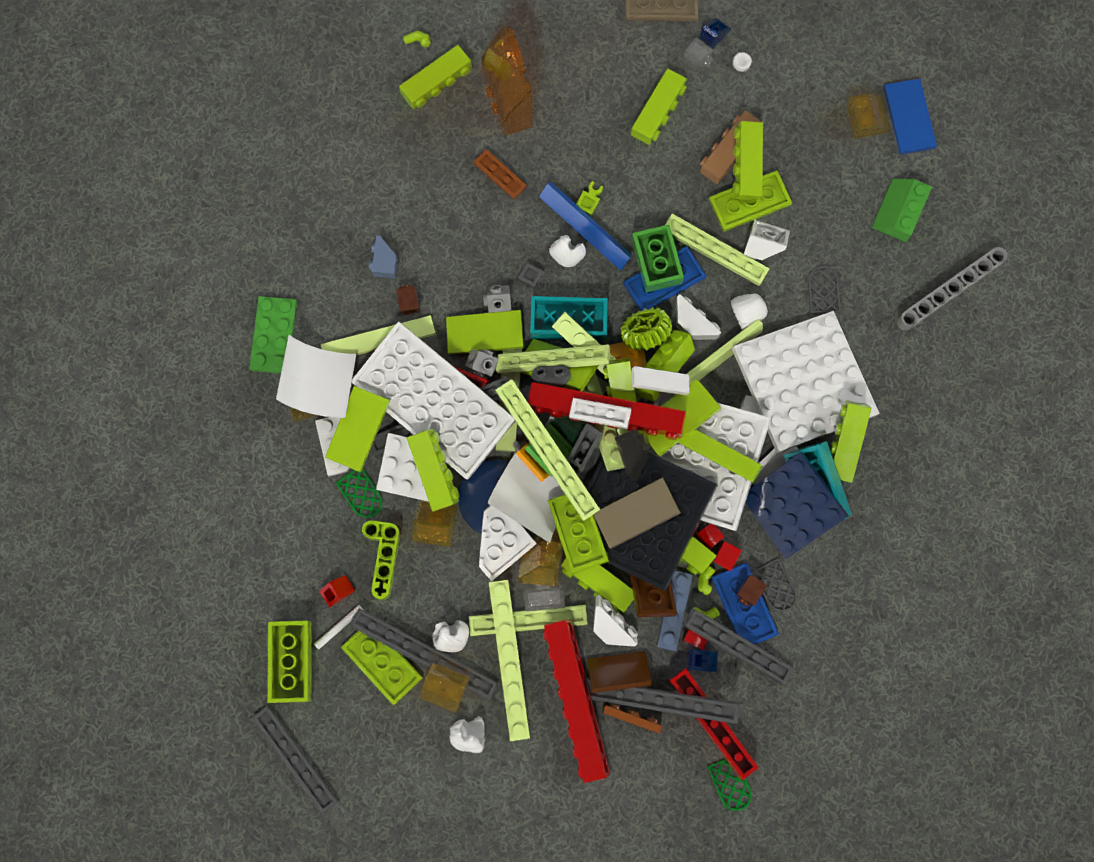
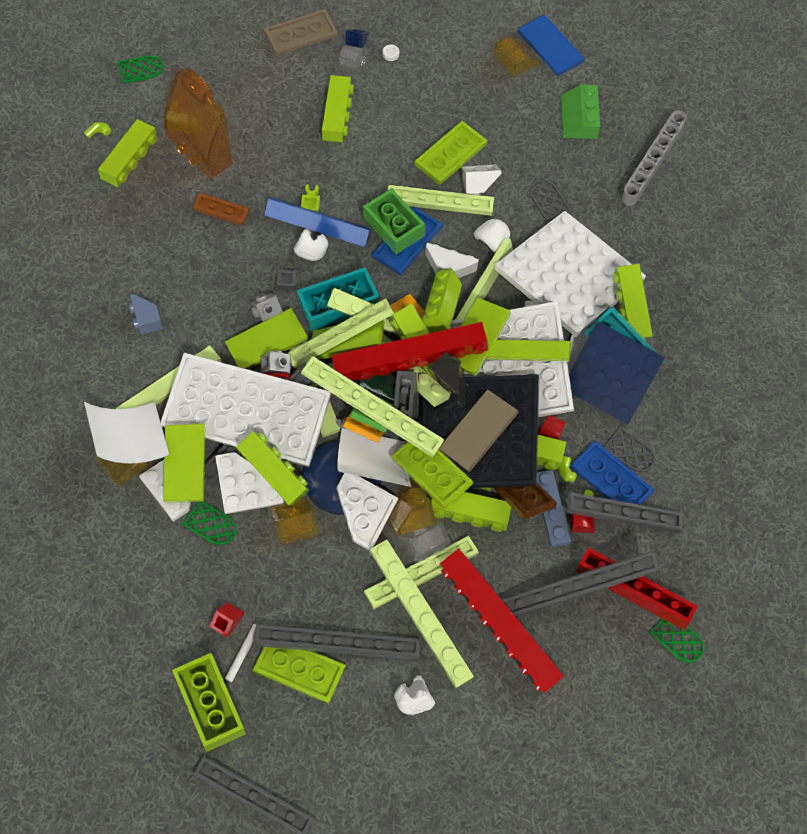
camera: 25 degrees left, 15 degrees down
(272, 327) = (66, 418): bright green plate -> none
(382, 561) = (260, 573): lime beam -> none
(407, 300) = (183, 340): copper brick -> none
(444, 687) = (371, 664): clear yellow slope -> none
(452, 637) = (355, 615): white hair -> none
(549, 375) = (348, 343): dark grey plate -> none
(600, 413) = (406, 353): white tile -> none
(612, 625) = (500, 540): white slope -> none
(619, 672) = (528, 579): reddish brown tile -> none
(632, 717) = (560, 616): dark orange plate -> none
(646, 329) = (411, 280): lime gear -> none
(660, 380) = (446, 308): white tile -> none
(702, 661) = (597, 539): clear blue slope -> none
(722, 157) = (414, 117): medium nougat brick -> none
(727, 555) = (575, 439): red brick -> none
(749, 160) = (435, 118): lime brick -> none
(751, 591) = (612, 459): copper brick -> none

